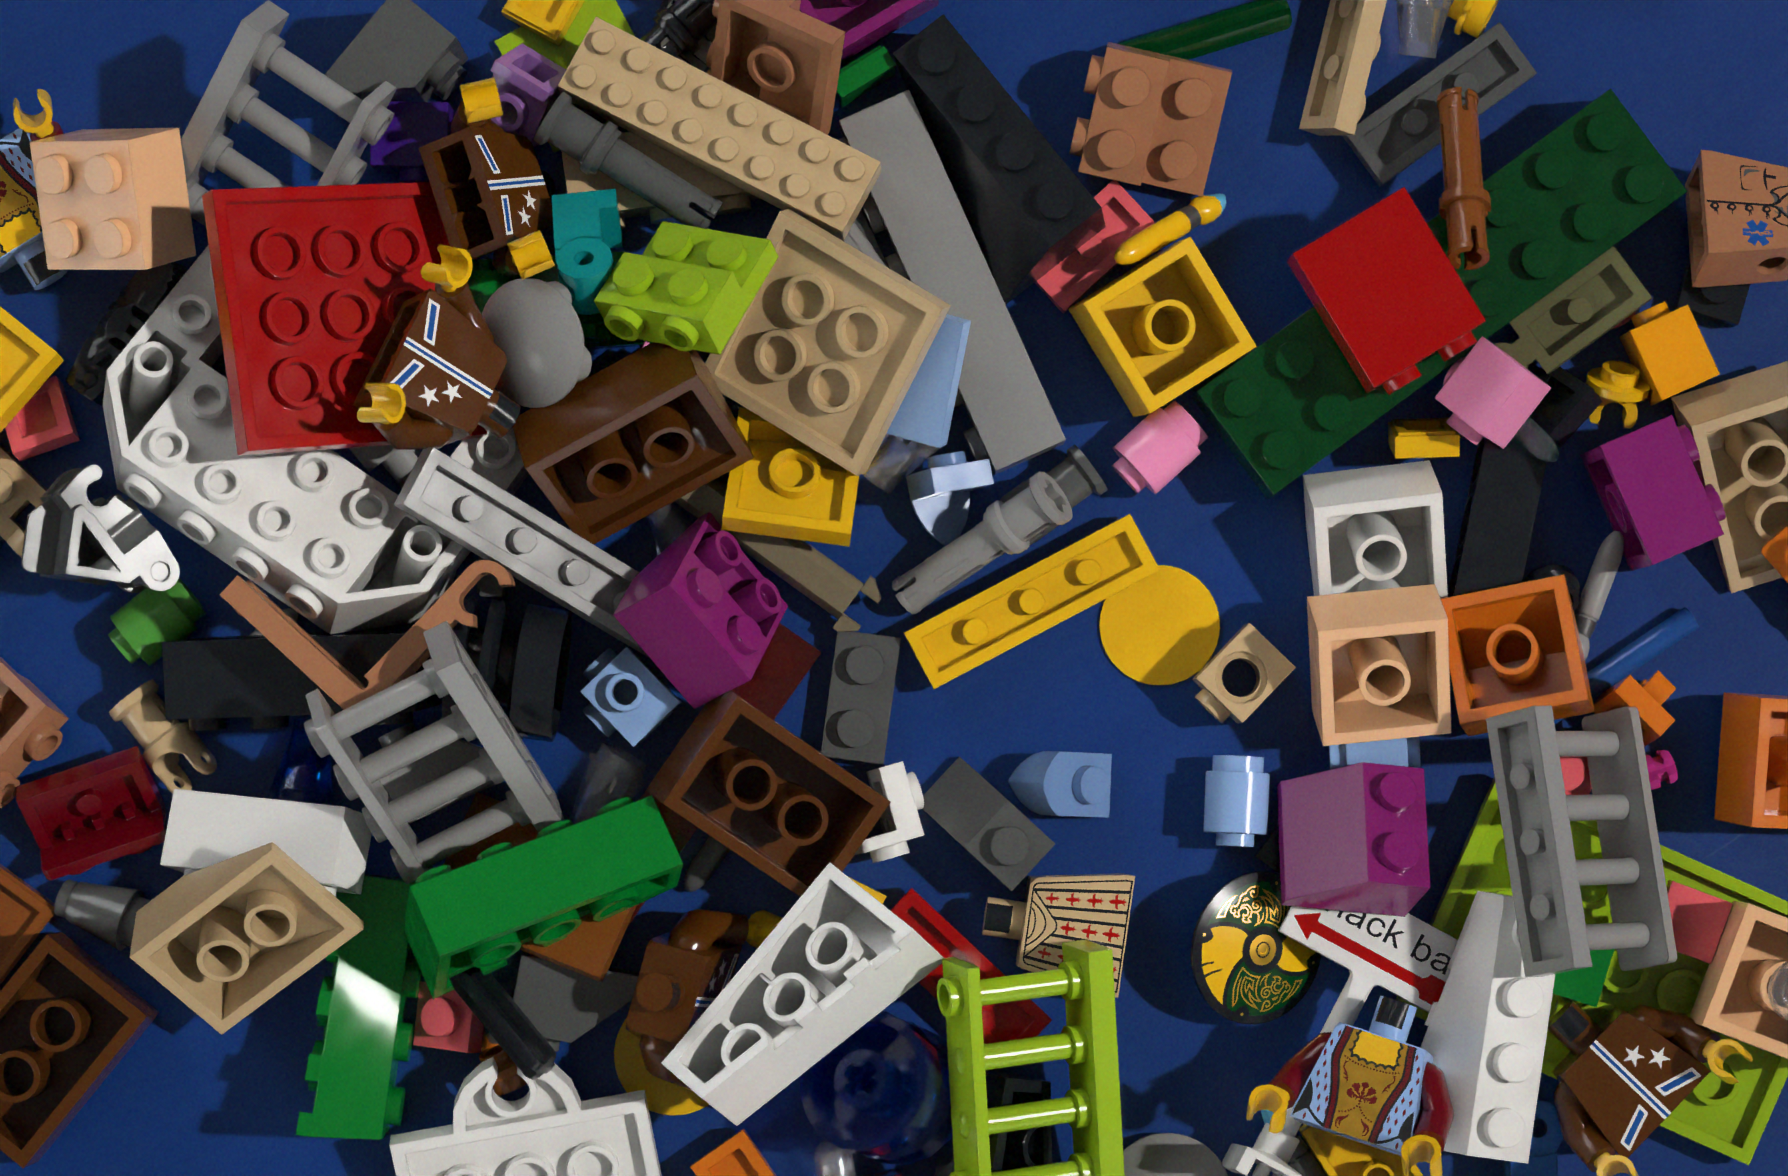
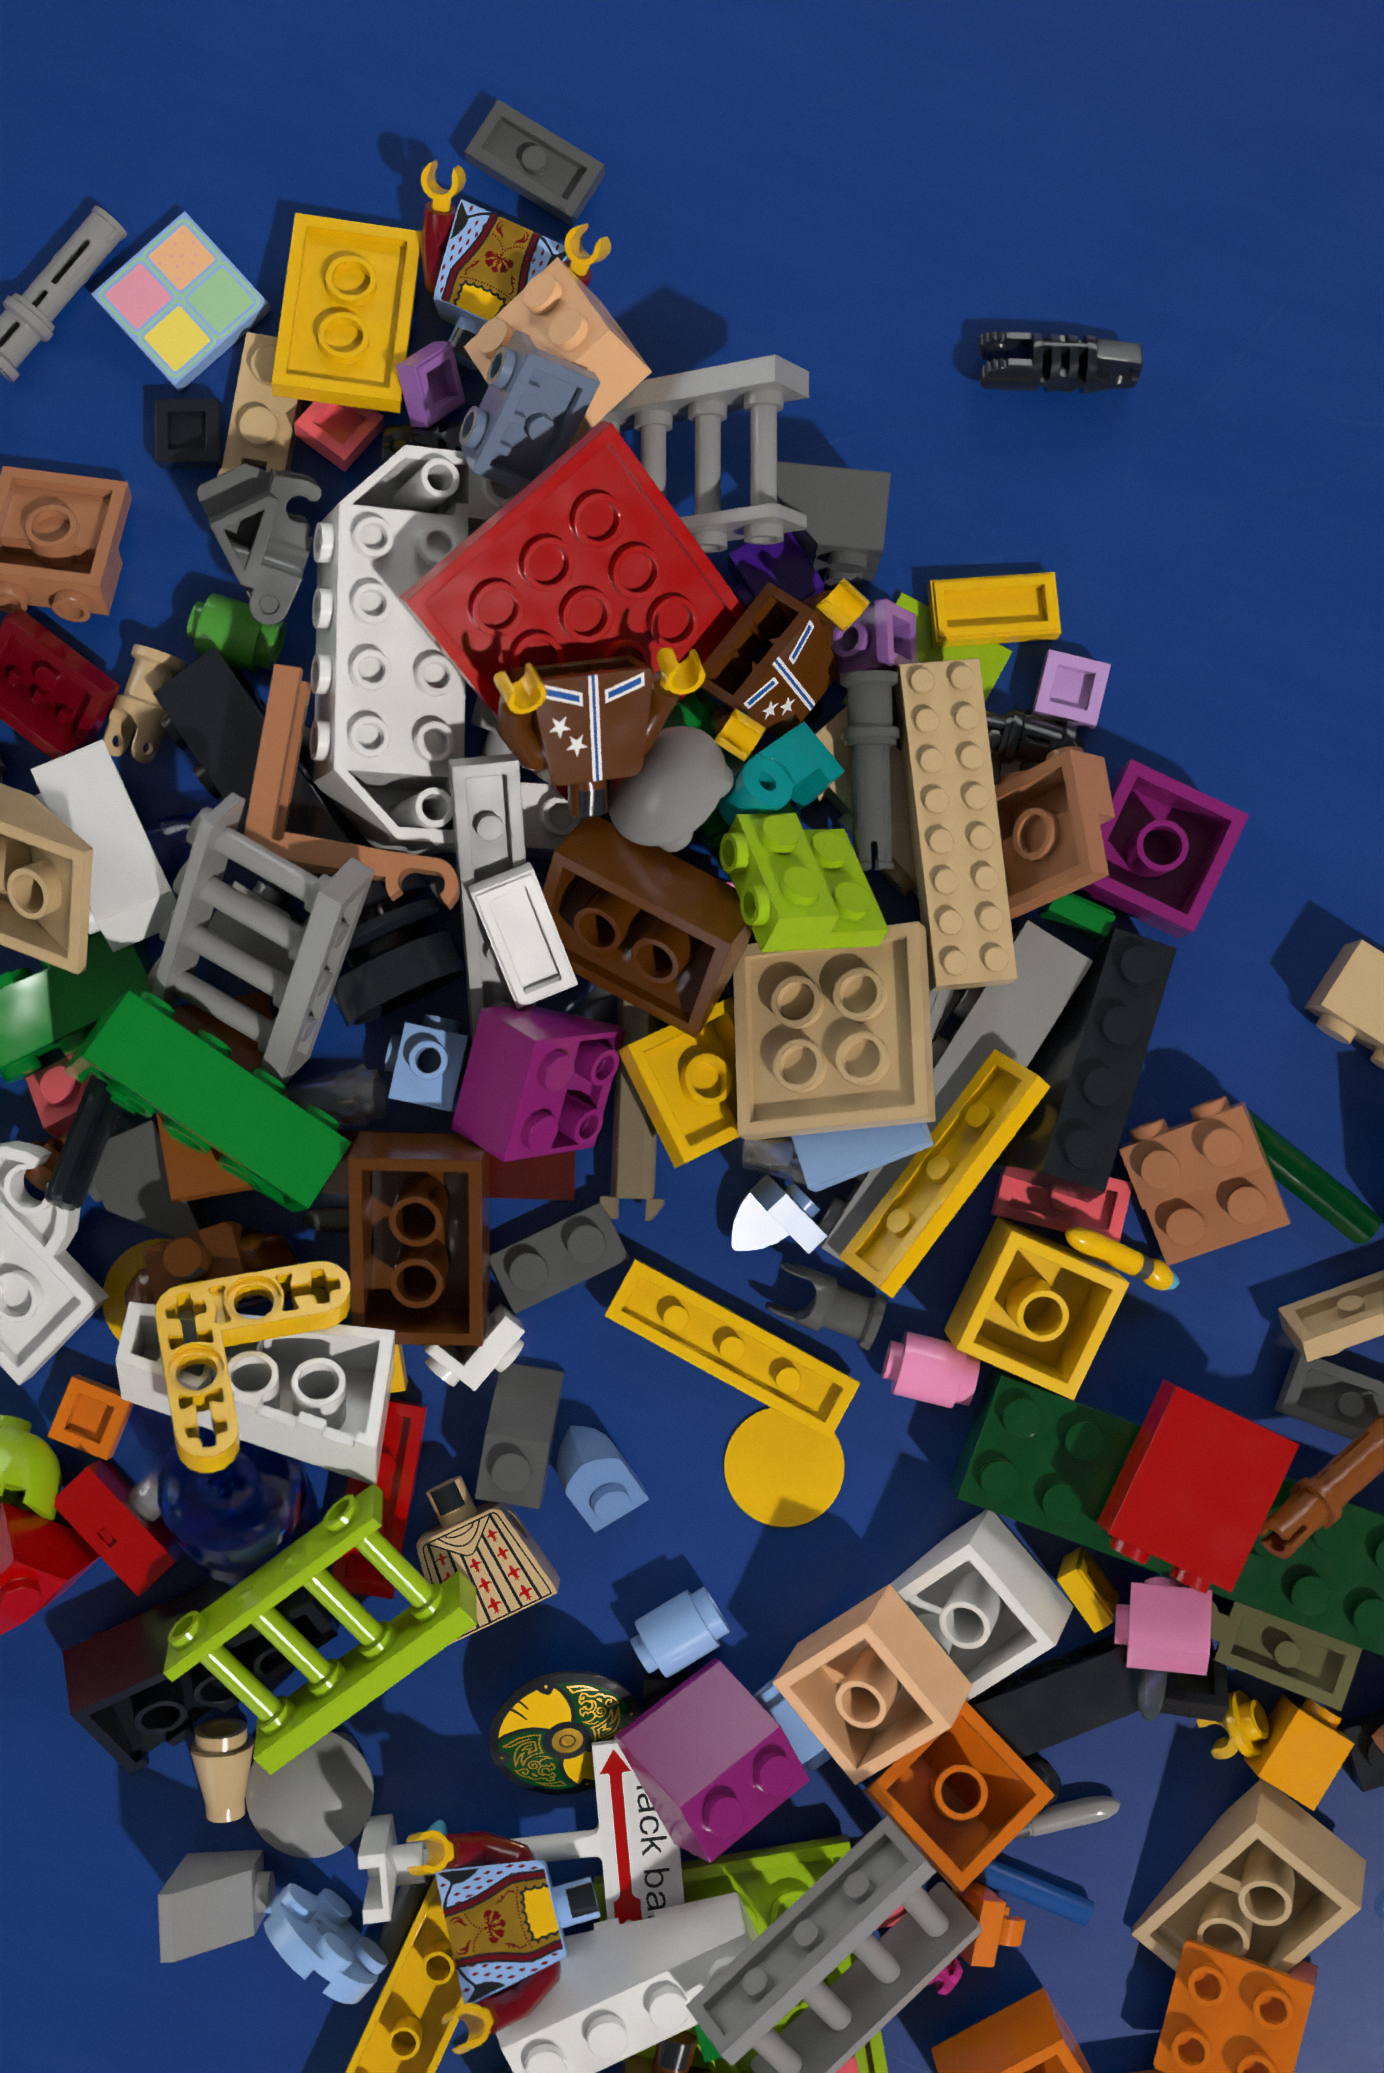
camera: 60 degrees right, 0 degrees up
(57, 317) = (430, 384): none -> medium lavender tile
(151, 255) = (525, 413): none -> sand blue bracket
(575, 541) = (523, 935): none -> white tile
(733, 995) = (222, 1326): none -> yellow beam
(999, 327) = (944, 1174): none -> yellow plate
(1003, 530) = (775, 1287): light grey pin -> none
(1270, 670) = (805, 1590): tan brick -> none
(1655, 492) = (1175, 1823): magenta brick -> none

